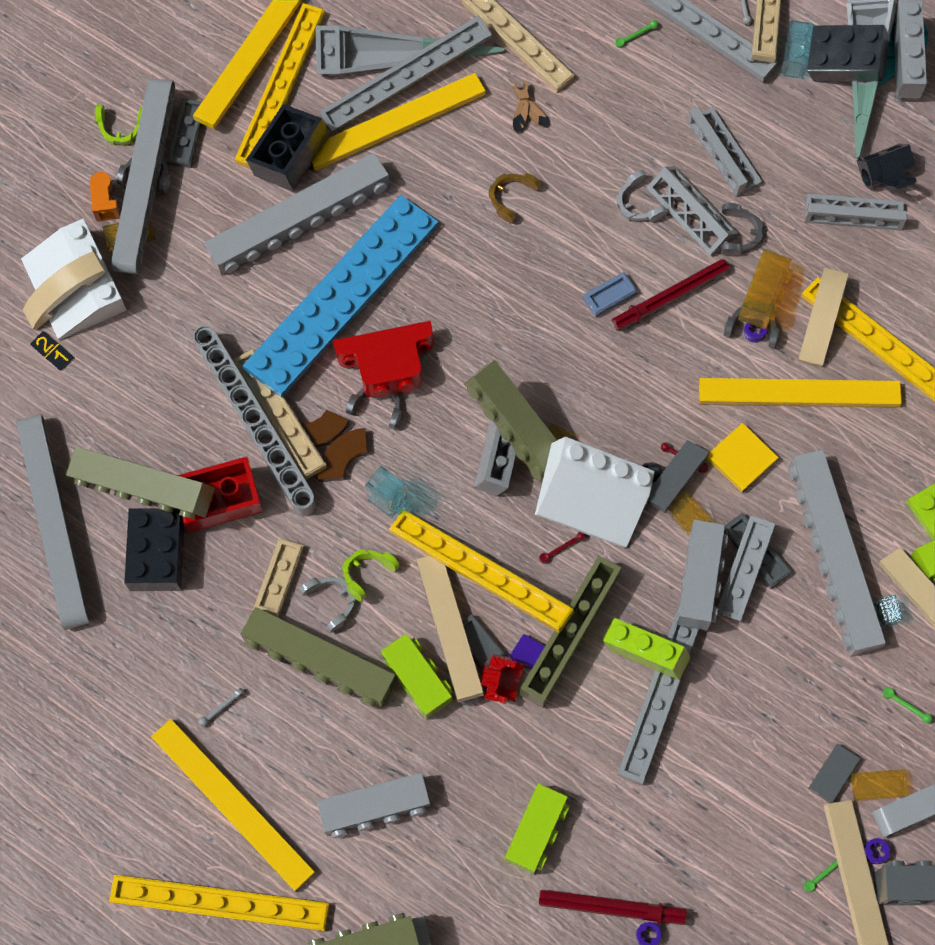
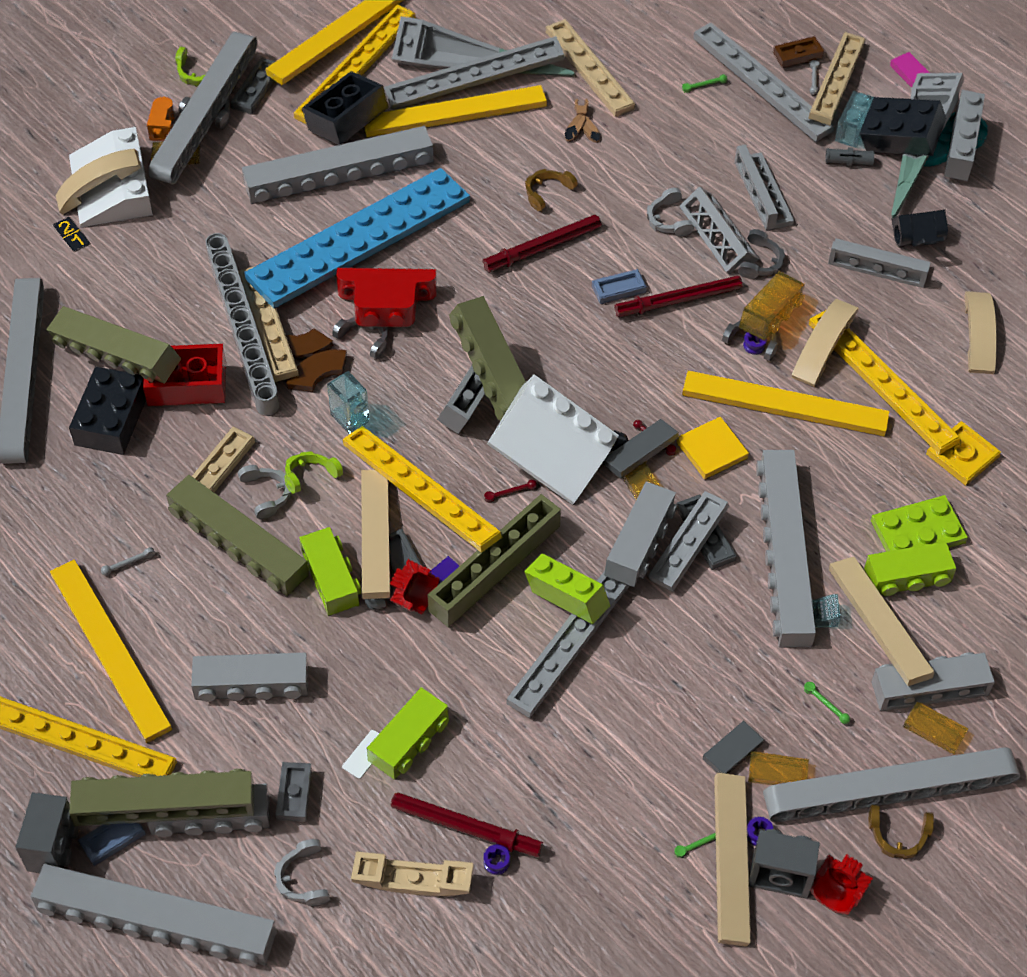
camera: 10 degrees right, 15 degrees down
(447, 912) = (293, 791): none -> flat silver plate
(495, 864) = (358, 761): none -> white sticker
(521, 263) = (541, 243): none -> dark red axle
(815, 92) = (849, 156): none -> dark grey pin

